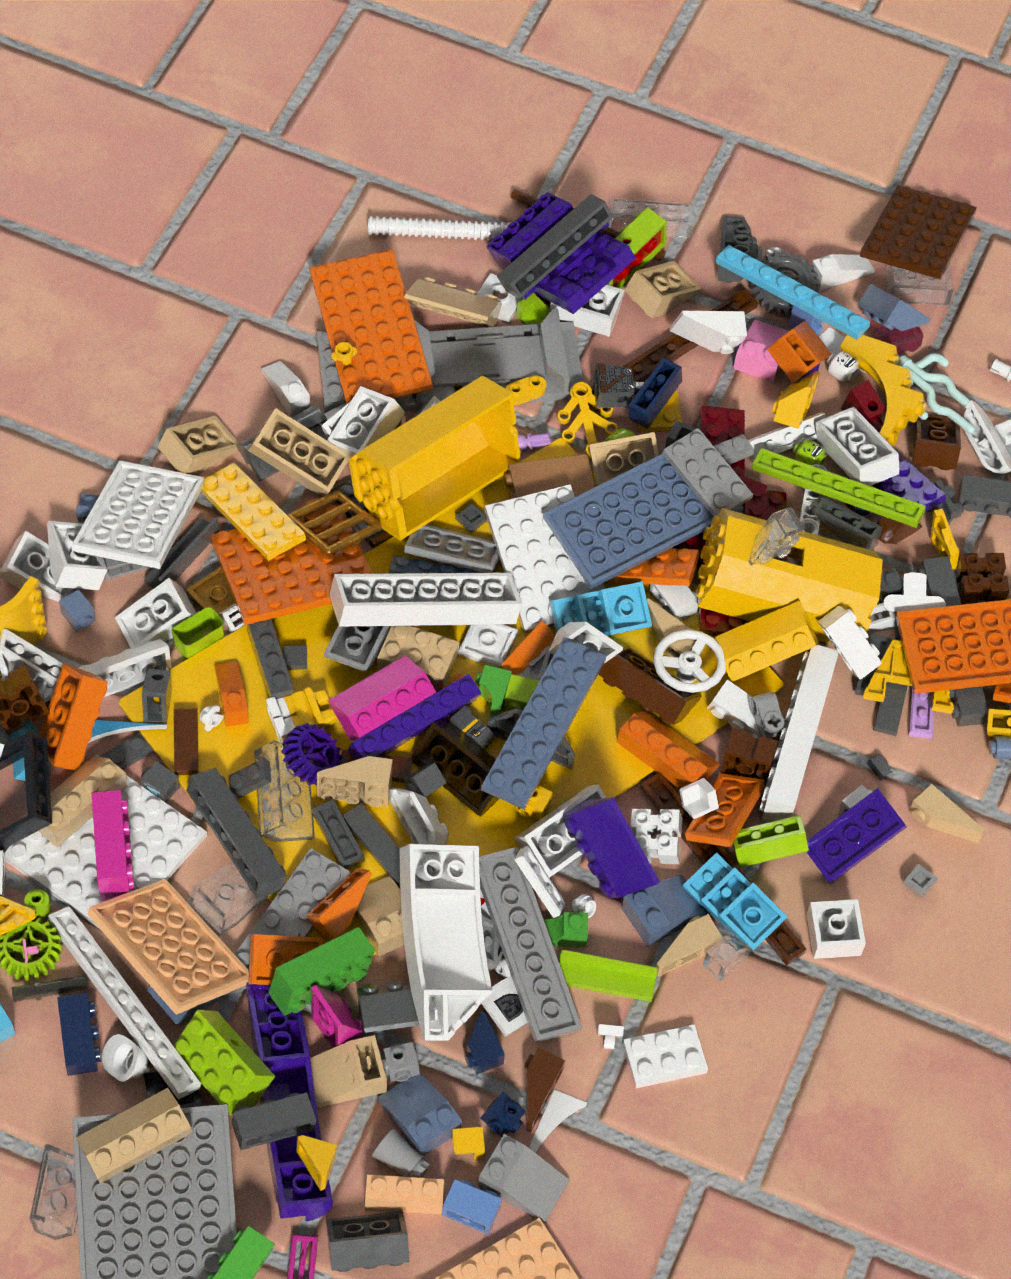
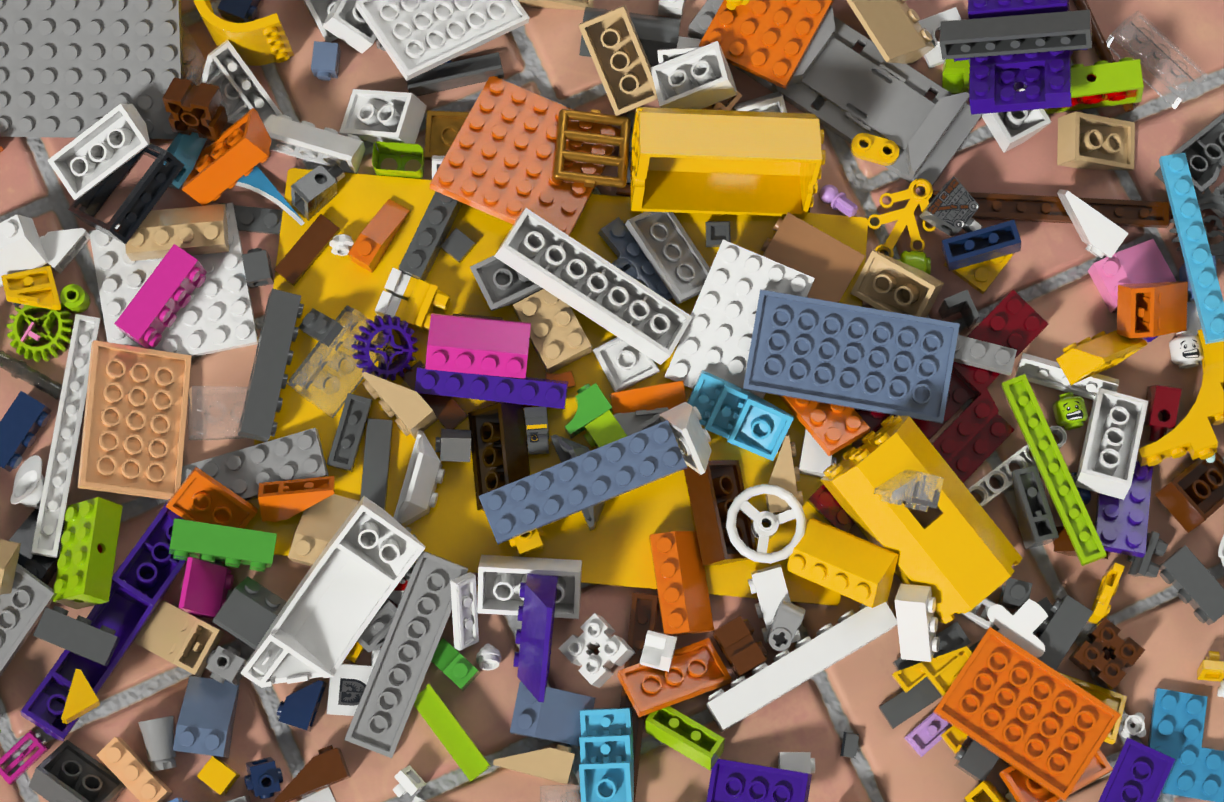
camera: 50 degrees right, 20 degrees up
(251, 511) = (537, 82): yellow plate -> none
(707, 473) = (937, 367): light grey plate -> none

